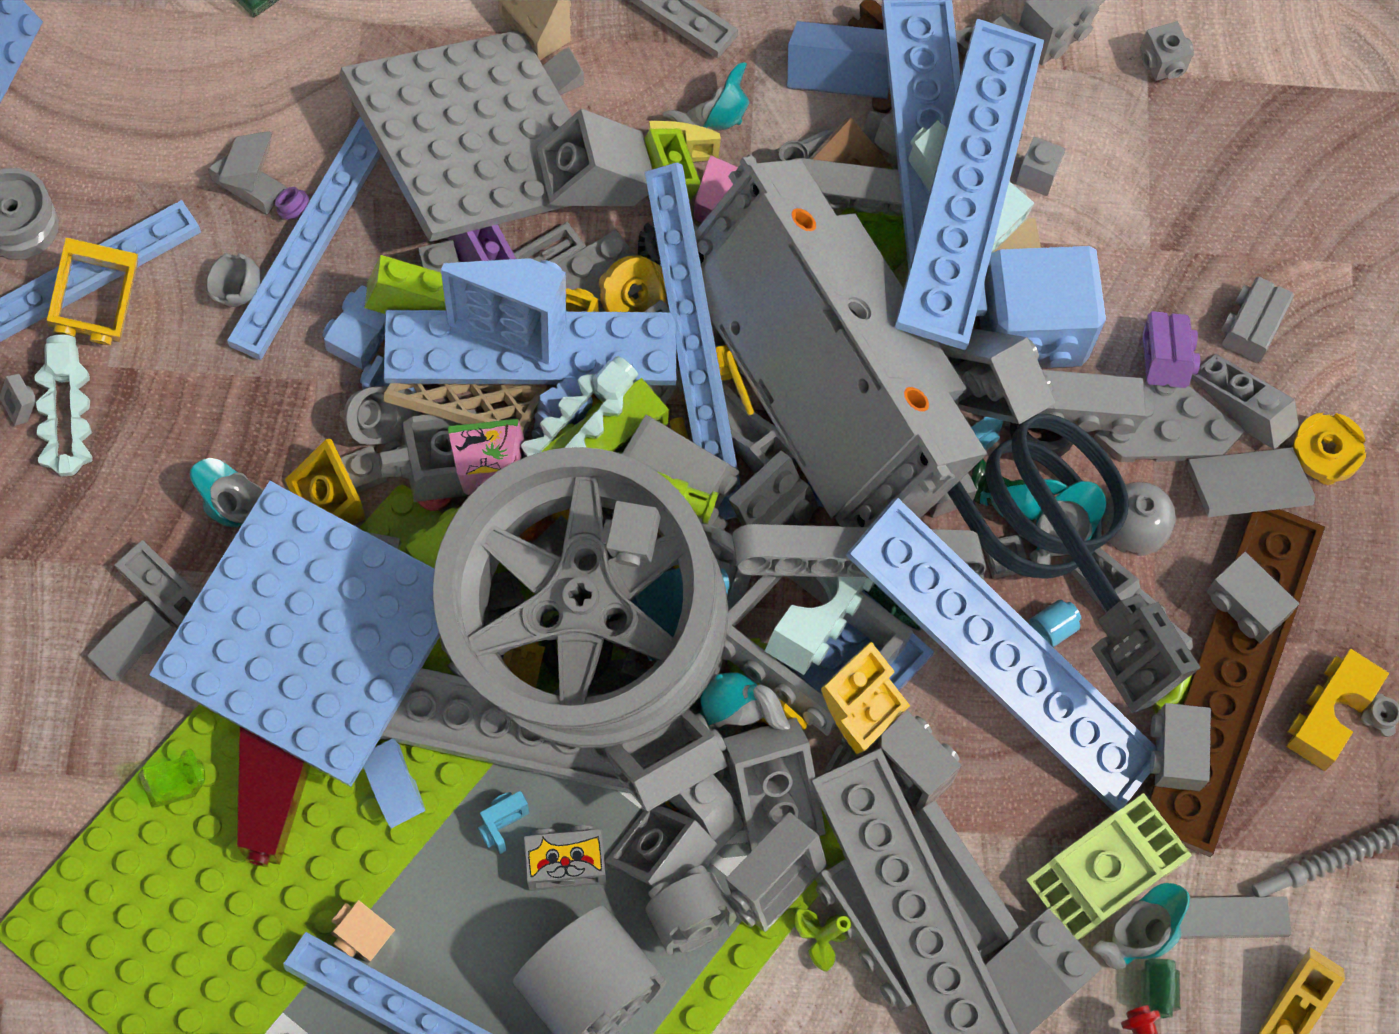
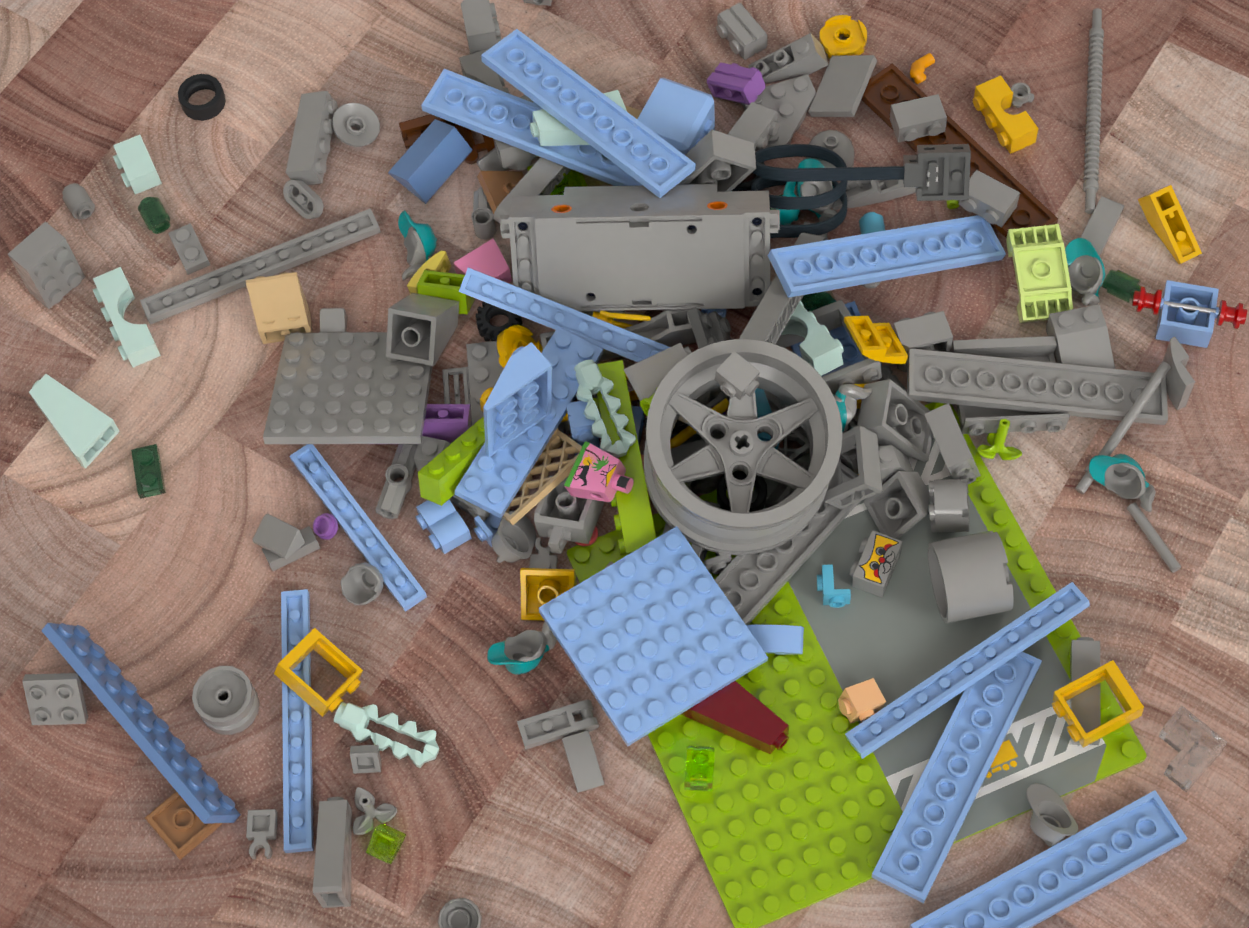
camera: 50 degrees left, 5 degrees down
(364, 253) = (395, 492): none -> light grey piece
(1342, 564) = (918, 67): none -> light orange arm

